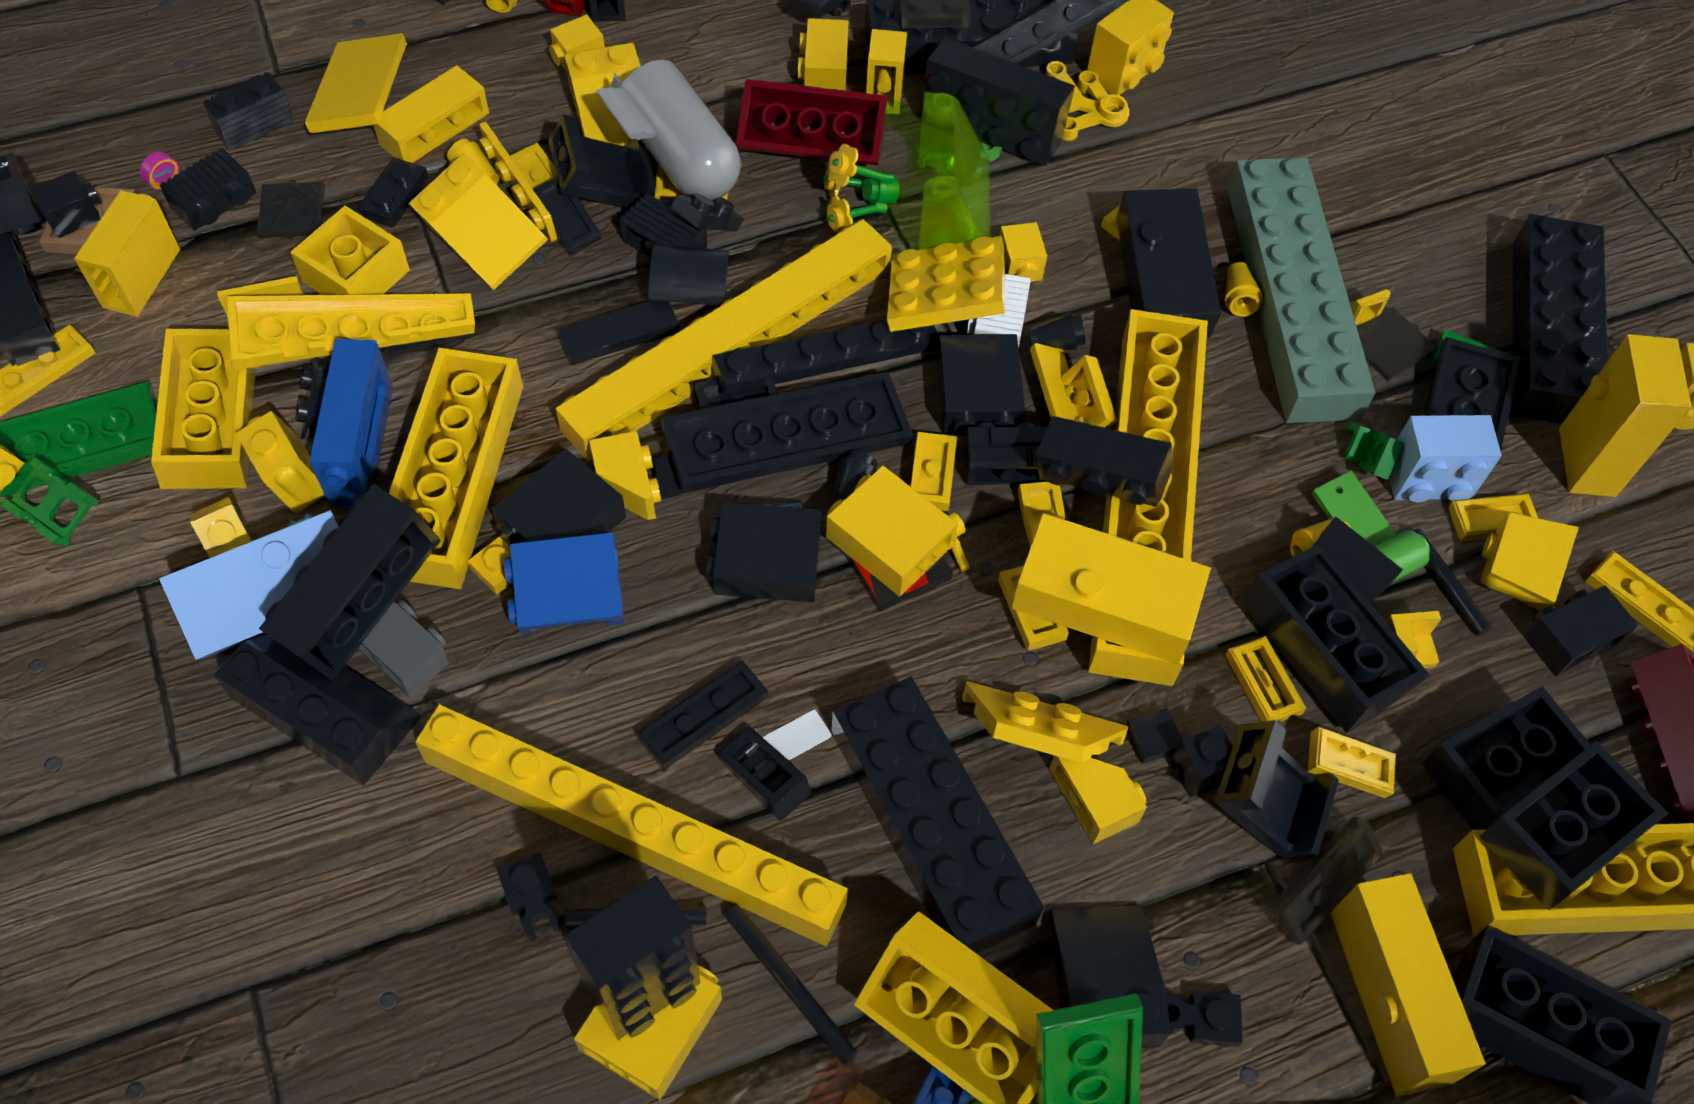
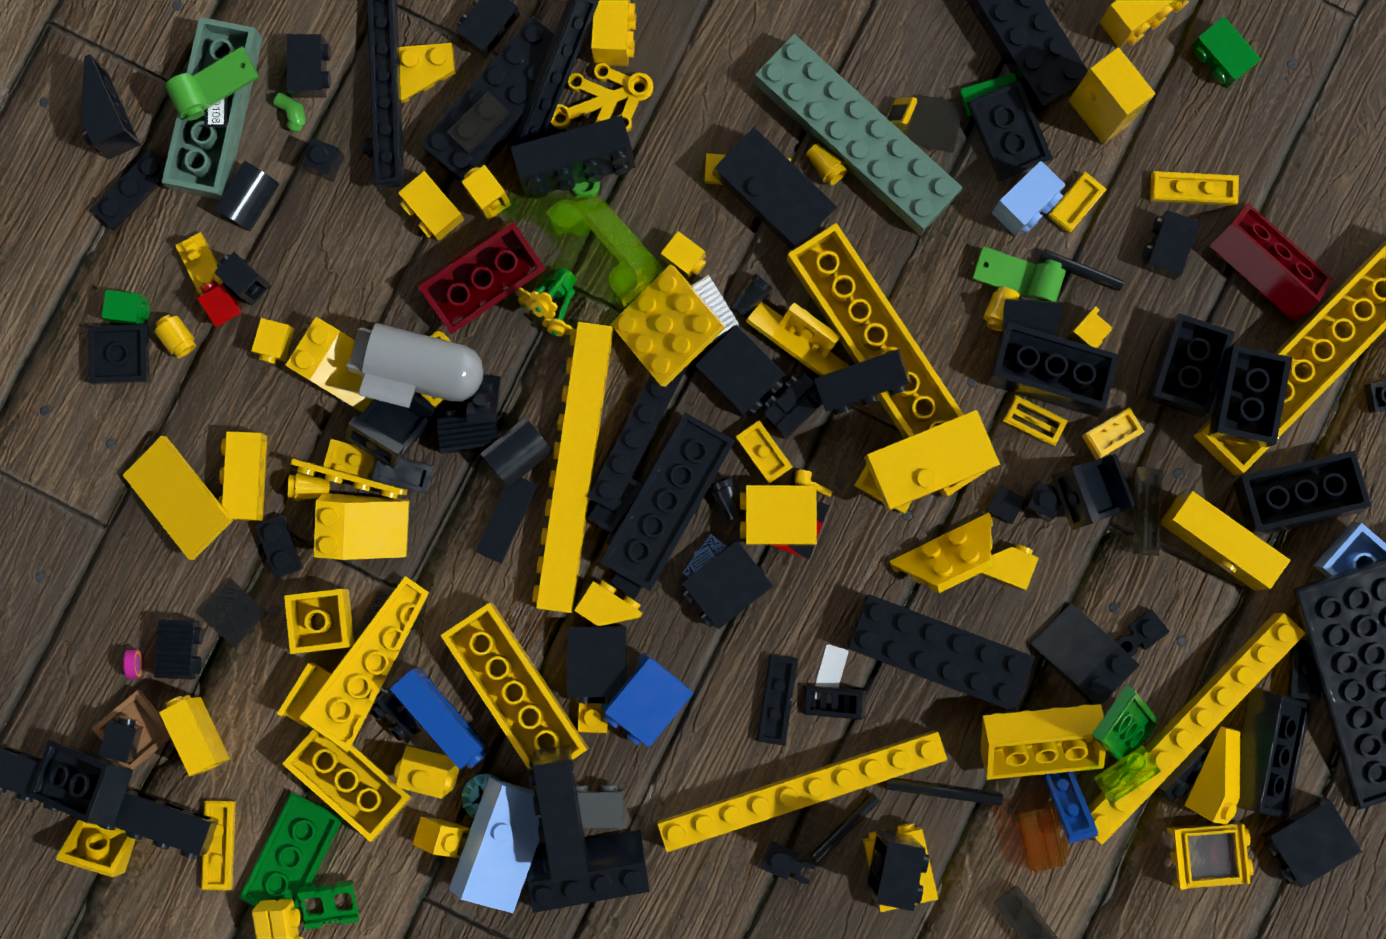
camera: 35 degrees left, 25 degrees up
(248, 111) = (136, 577): black brick -> none
(1036, 500) = (843, 426): yellow slope -> none
(1372, 450) = (983, 217): green slope -> none
(1528, 558) = (1115, 224): yellow torso -> none

